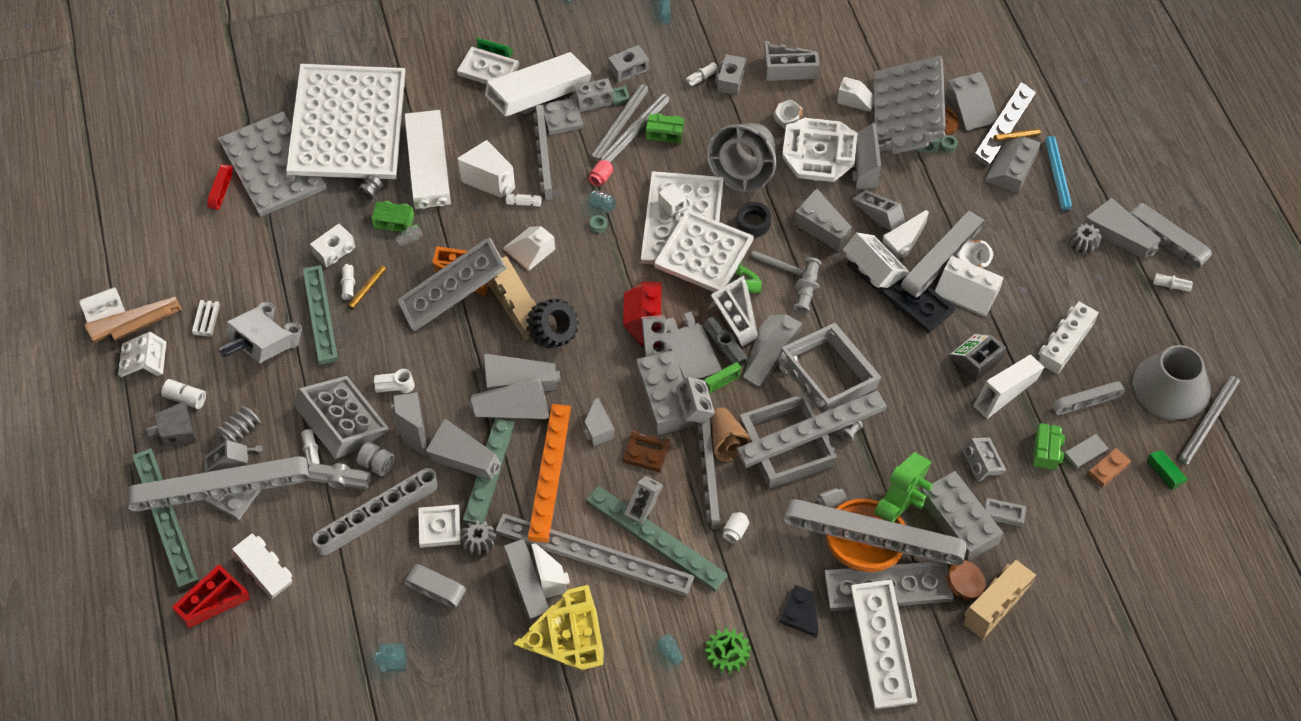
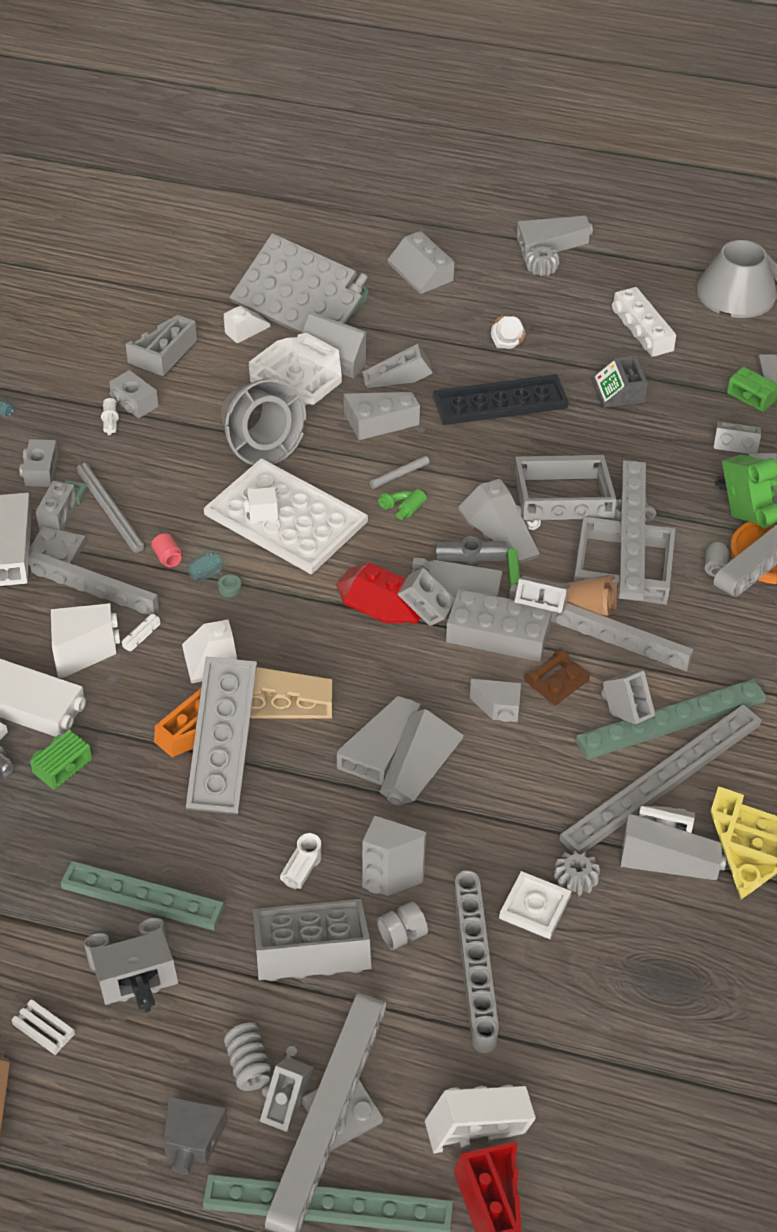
camera: 60 degrees left, 10 degrees down
(142, 352) = (43, 1129): white bracket -> none
(183, 393) = (147, 1100): white pin -> none
(310, 447) = (331, 990): white axle -> none
(332, 245) = (51, 837): white brick -> none
(339, 476) = (401, 974): light grey piece -> none
(347, 282) = (116, 847): white axle -> none
(368, 285) = (138, 833): pearl gold bar -> none
(391, 657) = (690, 1029): clear light blue brick -> none
(410, 235) = (101, 755): clear cone -> none
(435, 586) = (615, 944): light grey beam -> none
(462, 452) = (461, 830): light grey slope -> none
(484, 488) = (489, 827): sand green plate -> none
(549, 473) = (539, 771): orange plate -> none
(564, 318) = (345, 671): black tyre -> none
(635, 128) = (130, 499): light grey axle -> none
(665, 128) = (155, 473): bright green brick -> none
(703, 251) = (348, 511): white plate -> none
(735, 527) = (703, 646): white brick -> none
(736, 308) = (443, 521): white wedge -> none
(754, 208) = (332, 473): black tyre -> none
(787, 113) = (225, 376): white hair -> none
(807, 285) = (448, 459): light grey piece -> none
(875, 260) = (465, 395): white slope -> none
(902, 239) = (447, 366): white slope -> none
(937, 259) = (491, 351): light grey beam -> none
(969, 286) = (537, 353): white slope -> none
(972, 101) = (330, 247): light grey slope -> none
(1004, 123) = (370, 249): plate -> none
(1007, 385) = (672, 381): white slope -> none
(1013, 135) = (392, 245): pearl gold bar -> none
(1058, 173) = (459, 245): medium azure axle -> none
(1088, 398) = (718, 339): light grey beam -> none
(1172, 282) = (630, 236): white axle -> none
(1173, 237) = (597, 210): light grey beam -> none

